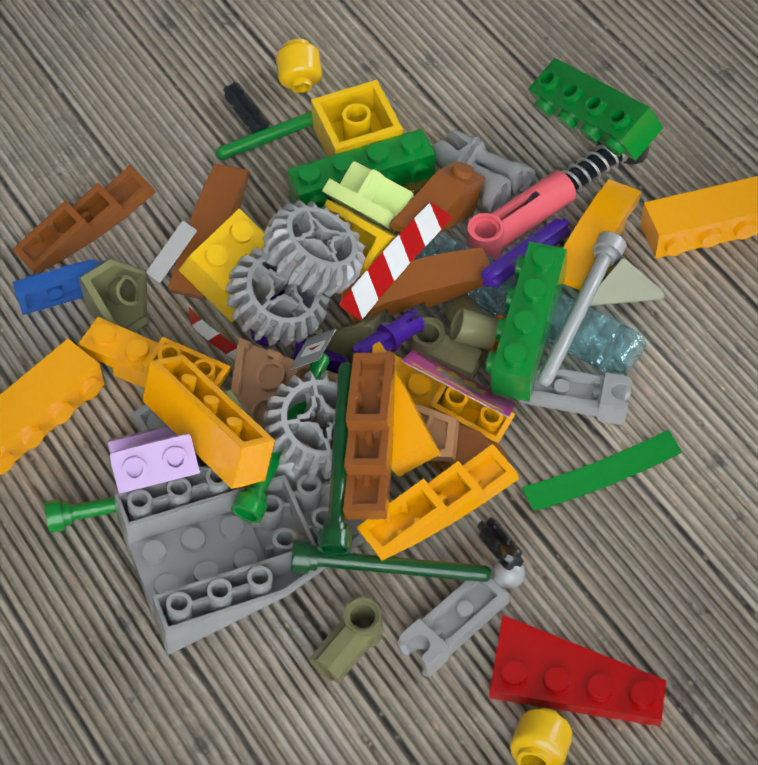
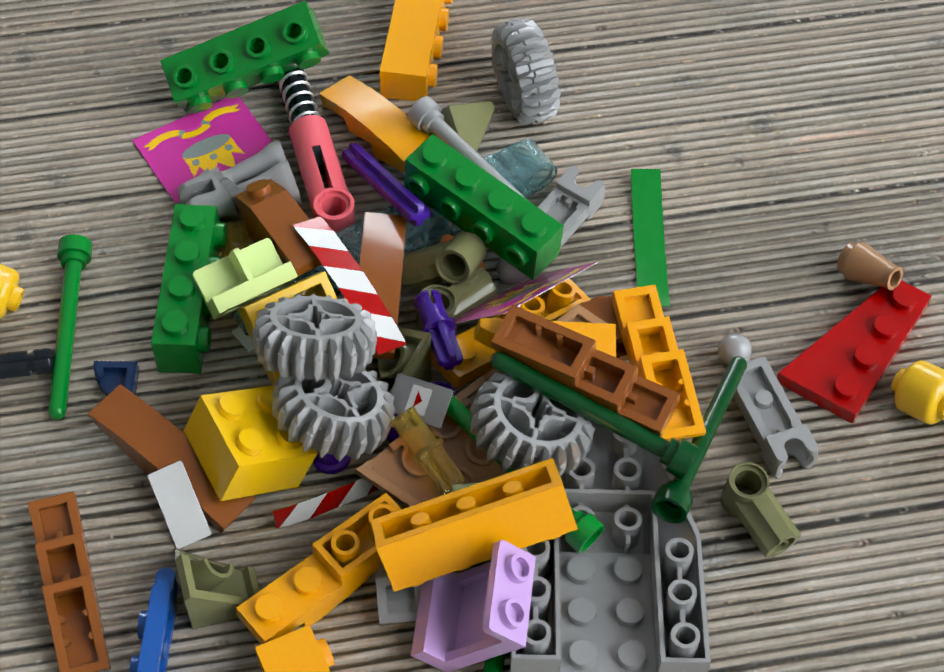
camera: 70 degrees left, 0 degrees up
(266, 175) = (113, 373): none -> dark blue tile
(269, 372) = (427, 450): none -> clear yellow axle
(353, 118) = (120, 264): yellow brick -> none
(500, 544) = (713, 338): black axle -> none
(519, 132) = (202, 141): none -> dark pink sticker
(661, 648) = (865, 265): none -> medium nougat cone
(710, 302) = (525, 71): none -> light grey gear

